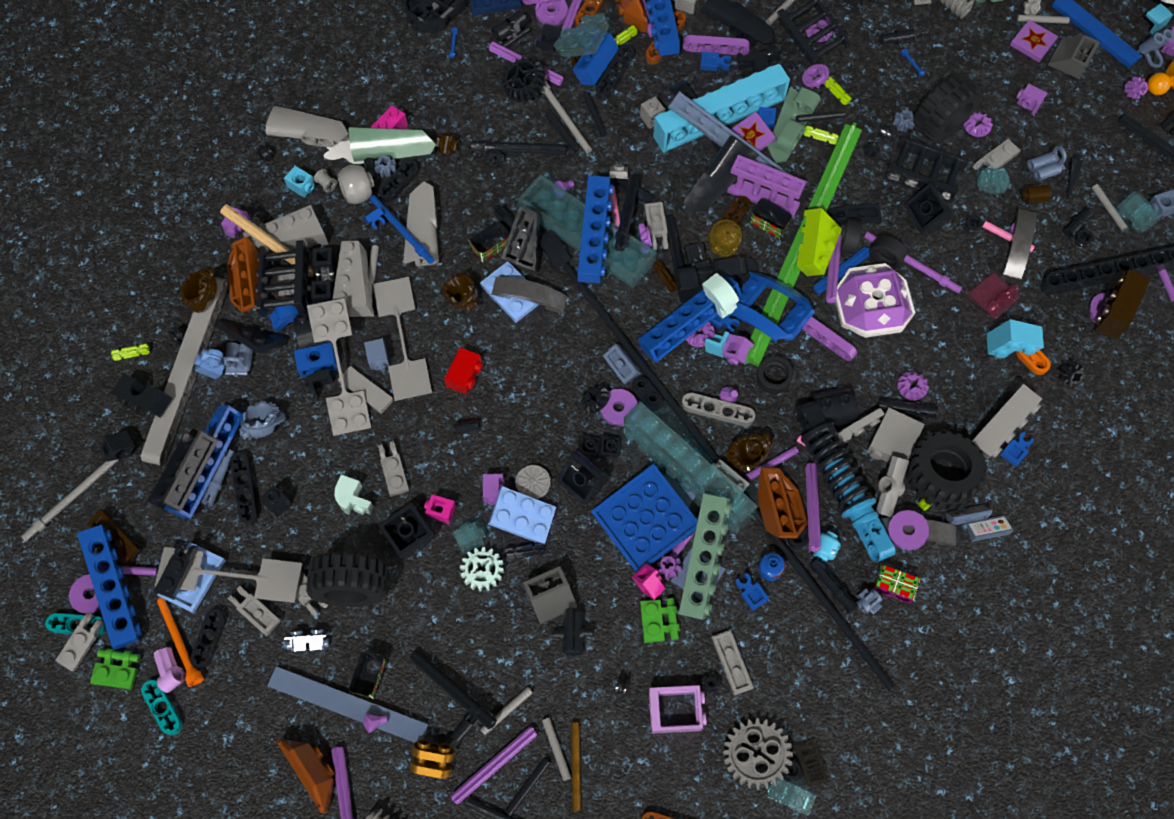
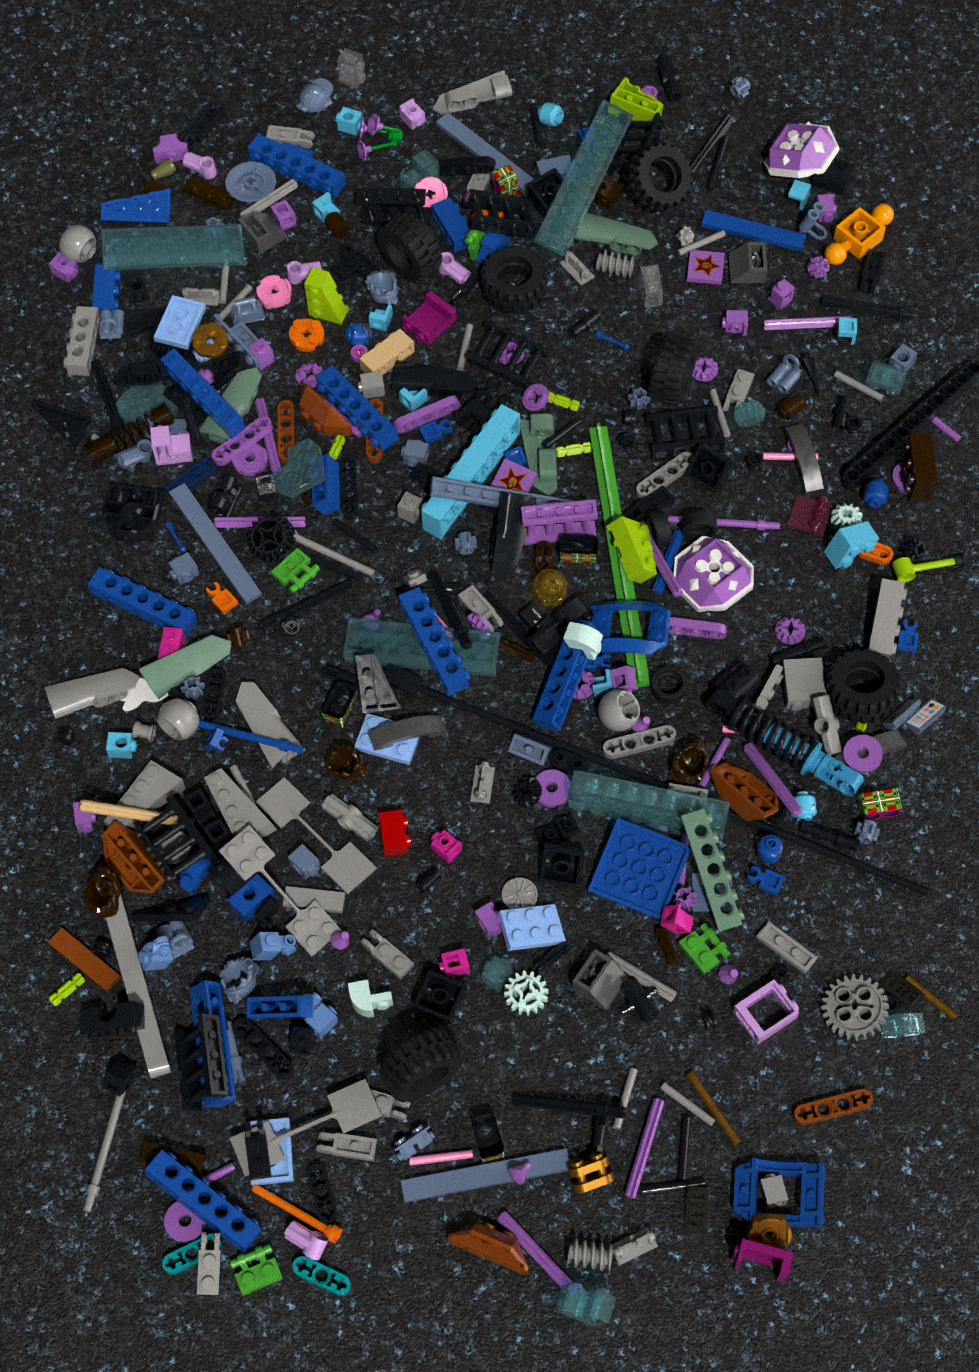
camera: 30 degrees left, 5 degrees down
(159, 336) = (84, 960): none -> dark orange tile
(273, 462) = (279, 1007): none -> blue brick
(303, 406) = (269, 944): none -> medium blue brick
(304, 491) = (323, 1017): none -> medium blue brick
(322, 667) = (441, 1157): none -> bright pink bar
(363, 435) = (340, 940): none -> medium lavender rock
(392, 78) = (100, 587): none -> blue brick
(437, 338) = (349, 817): none -> light grey piece
(440, 69) = (183, 568): none -> sand blue brick
(455, 108) = (222, 599): none -> orange plate
(479, 62) = (215, 543): none -> sand blue tile
(500, 411) = (448, 851): none -> dark pink brick
(527, 111) = (293, 565): none -> bright green plate
(563, 371) = (482, 783): none -> light grey hinge
(588, 612) = (643, 978): none -> light grey axle
(628, 597) = (666, 945): none -> dark brown axle
(665, 655) = (728, 974): none -> medium lavender rock
(679, 164) = (465, 543): none -> sand blue gear
(686, 70) = (415, 452): none -> sand blue brick
(713, 28) = (412, 399): none -> medium azure panel
(715, 372) = (619, 710): none -> light grey wheel
(834, 787) = (933, 999): none -> pearl gold bar
(885, 193) = (664, 475): none -> light grey beam
(967, 172) = (721, 417): none -> light grey bar
(975, 32) = (651, 286): none -> clear brick
(1026, 312) = (845, 516): none -> light aqua gear
(1052, 388) = (906, 570): none -> lime piece
(1066, 307) = (875, 493): none -> blue head
(1088, 90) = (781, 294): none -> medium lavender brick
(1096, 130) = (800, 323): none -> medium lavender axle
(1130, 152) = (847, 328): none -> medium azure panel

